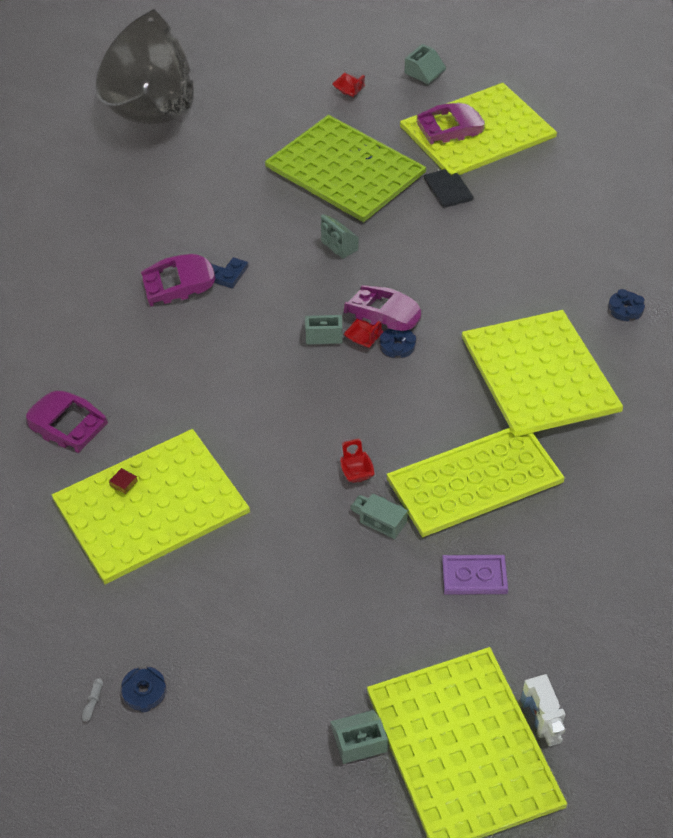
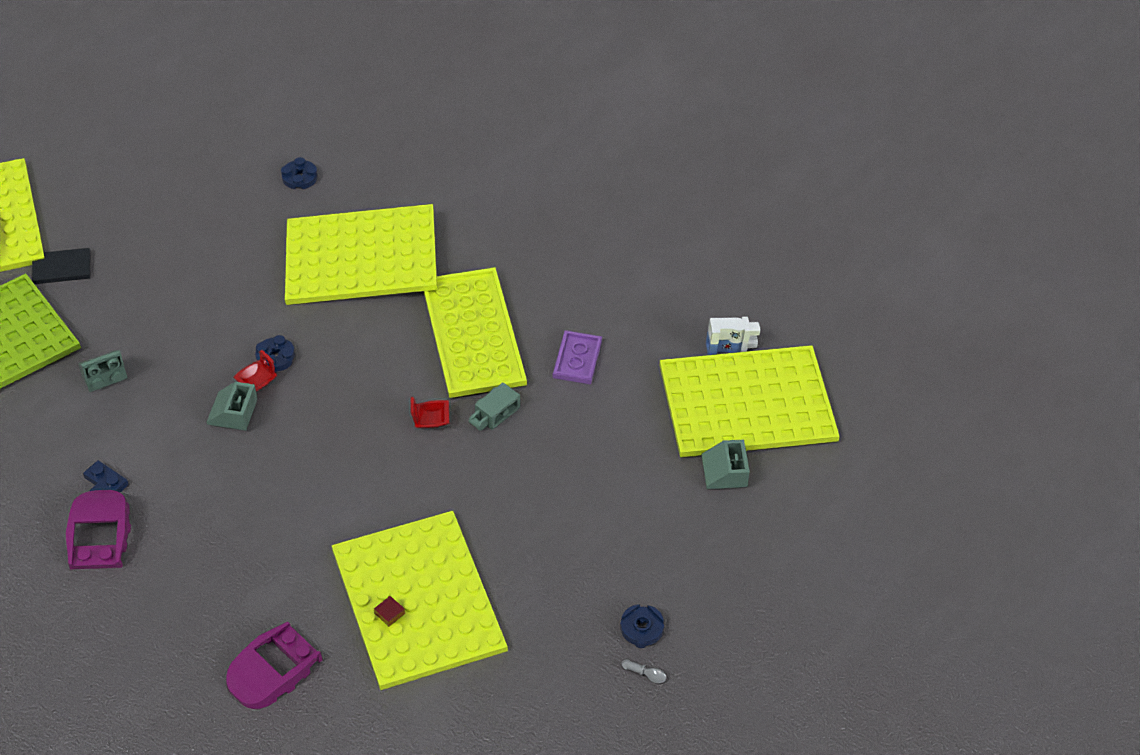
camera: 80 degrees left, 0 degrees up
(397, 313) = (242, 337): magenta slope -> none

